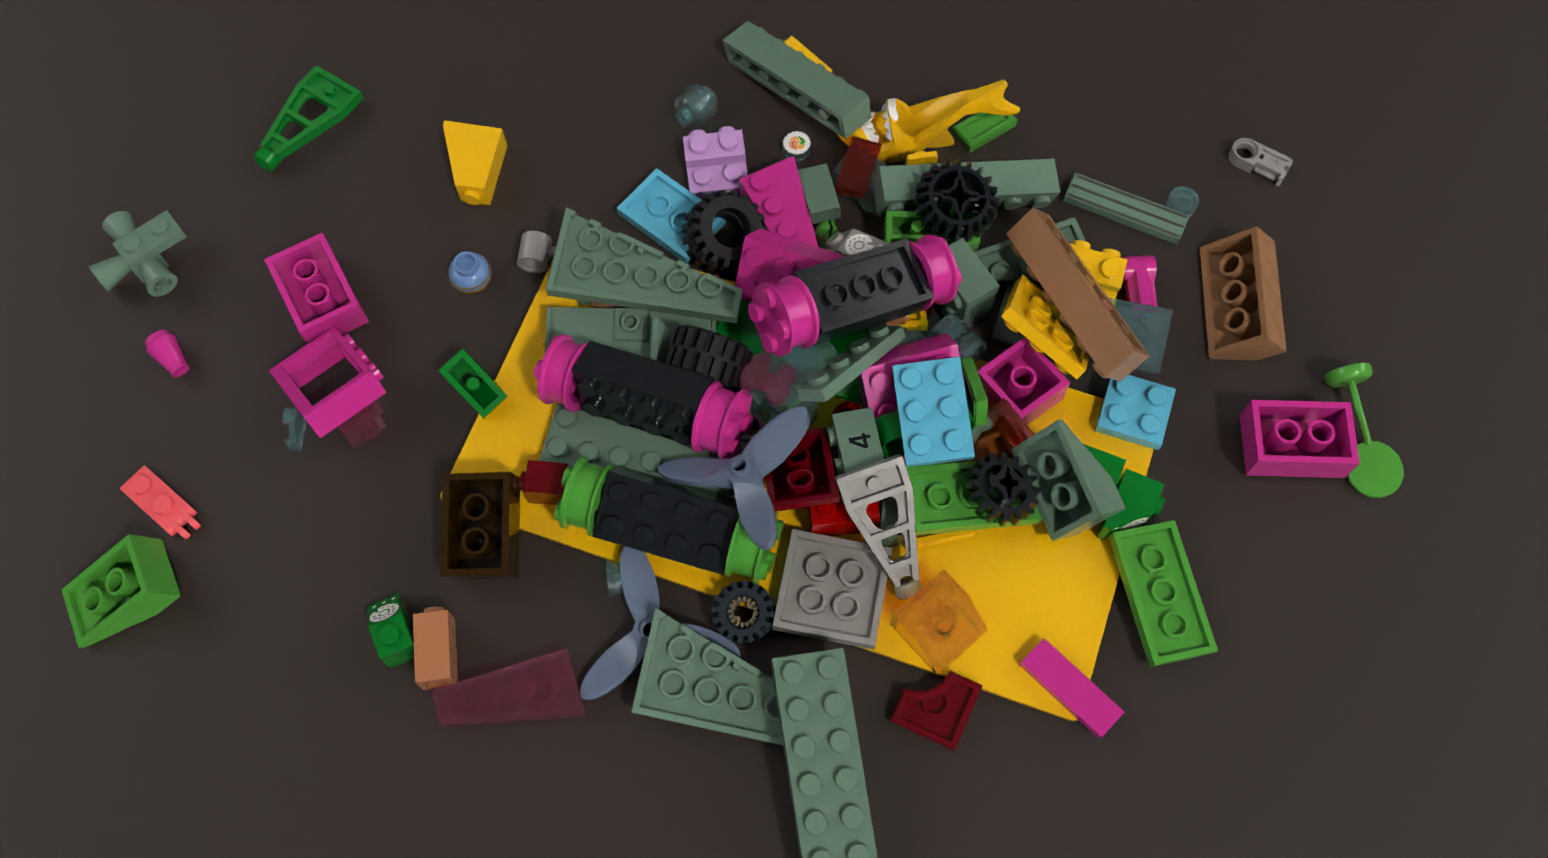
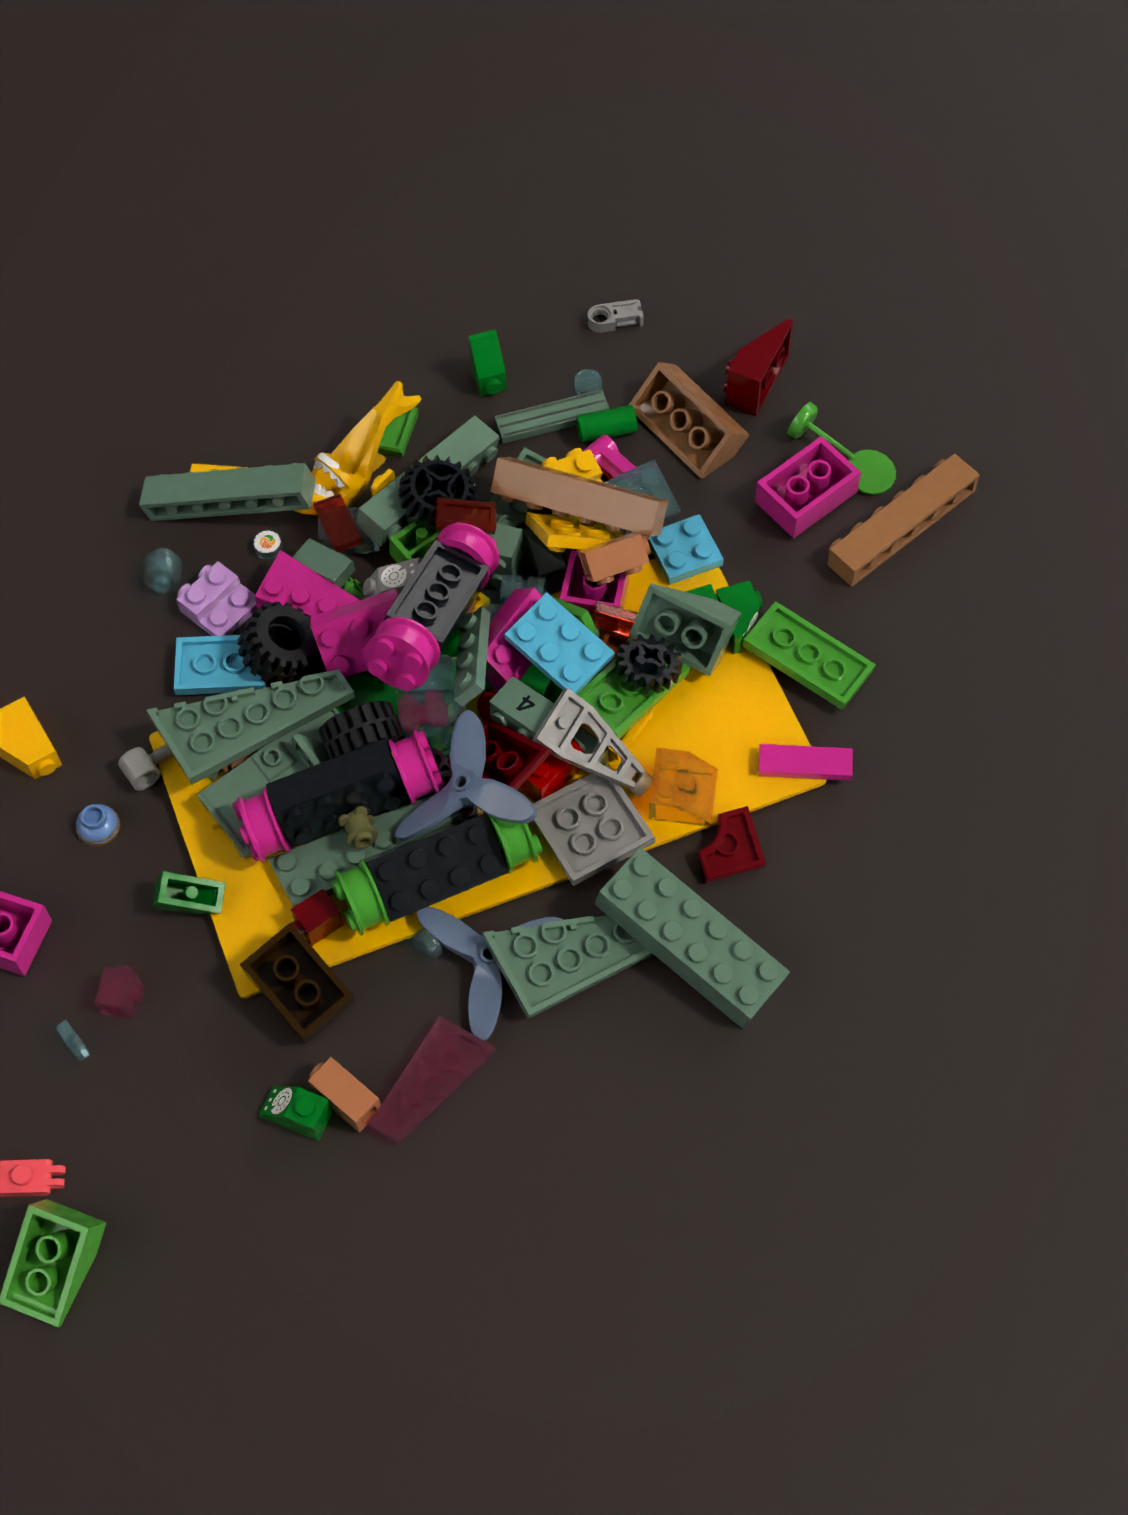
camera: 40 degrees left, 5 degrees down
(314, 360) = (39, 974): dark pink window -> none
(636, 437) = (359, 828): none -> olive brick
(731, 625) = (544, 874): black bush -> none
(963, 240) = (470, 512): none -> clear red tile
(1054, 371) = (614, 557): none -> nougat brick
(1106, 121) = (487, 363): none -> green slope
(1166, 248) = (607, 422): none -> green pin
(1347, 297) = (757, 368): none -> dark red slope
(1367, 536) = (902, 519): none -> medium nougat brick

